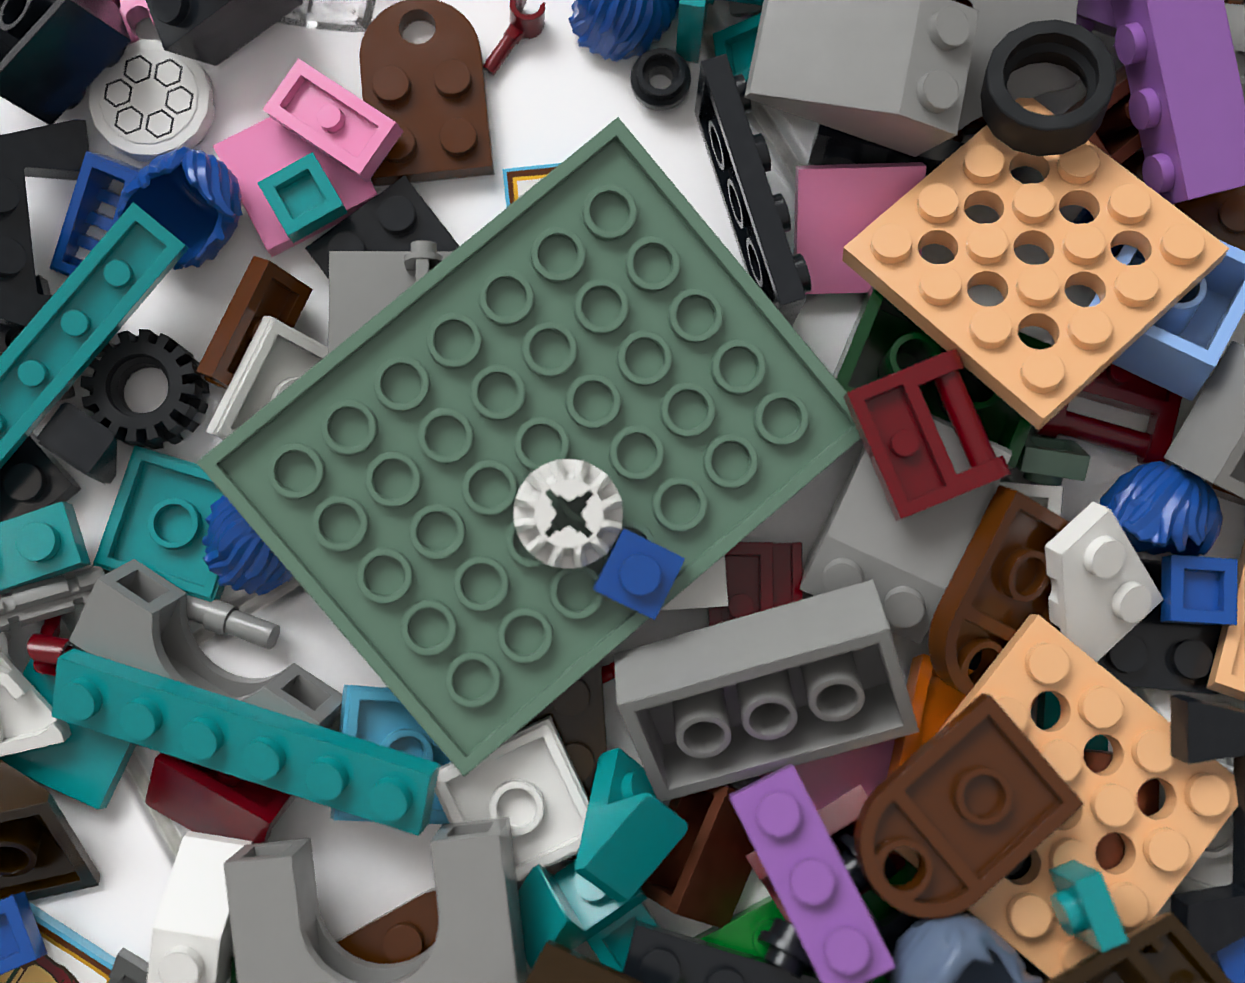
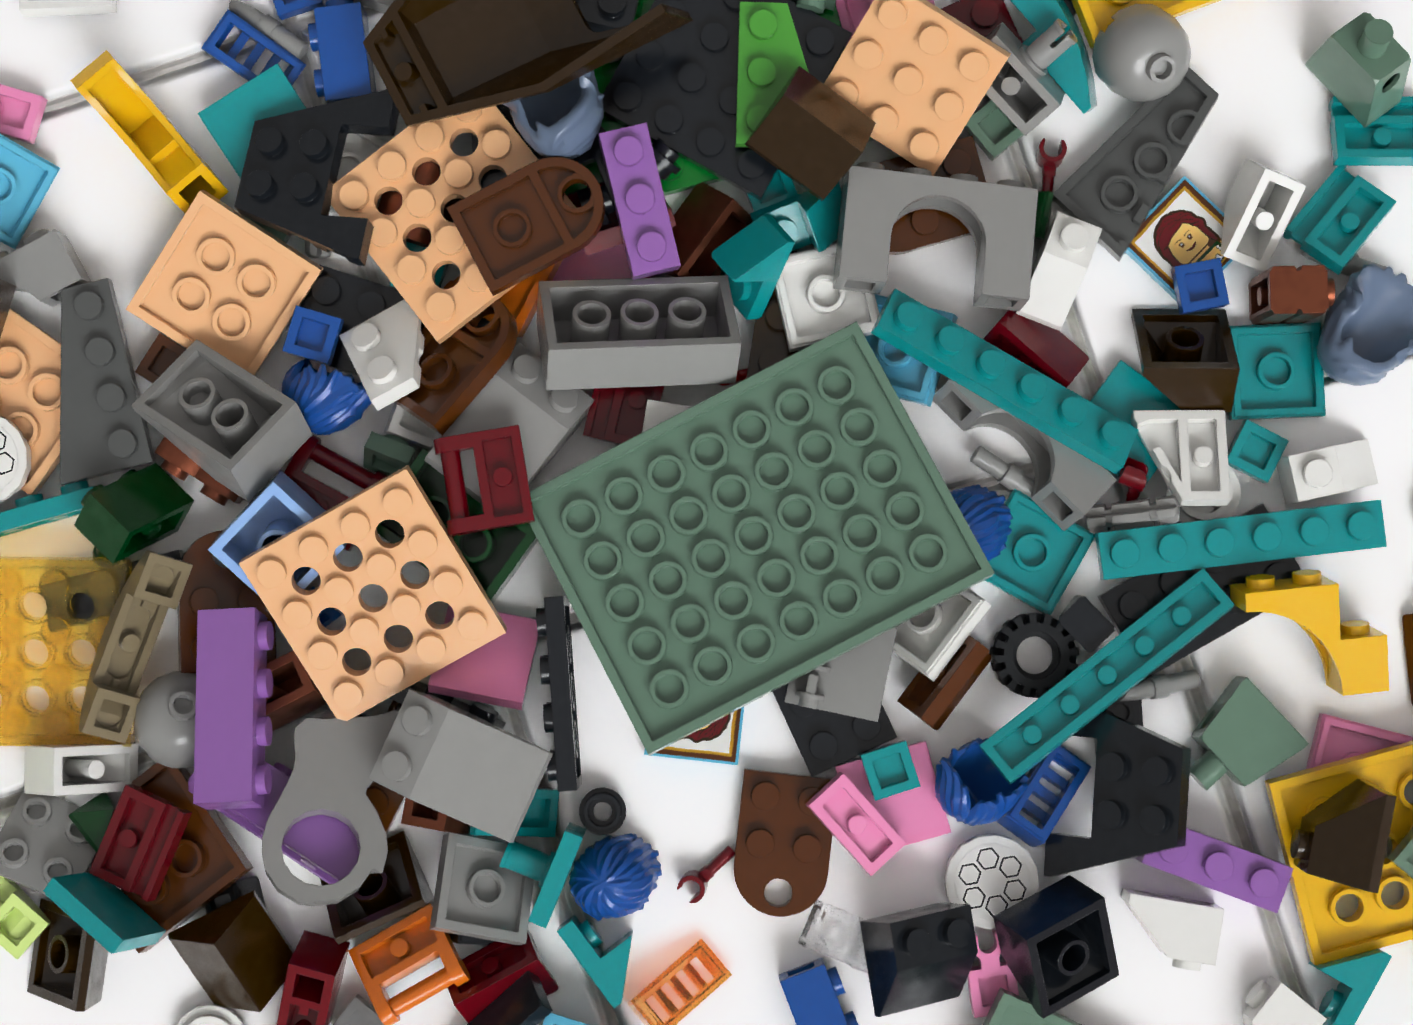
camera: 165 degrees left, 5 degrees up
(534, 513) = (740, 503): white gear -> none
(638, 573) = (706, 430): blue plate -> none
(1057, 44) = (330, 748): black tyre -> none
(1086, 906) = (463, 142): teal plate -> none

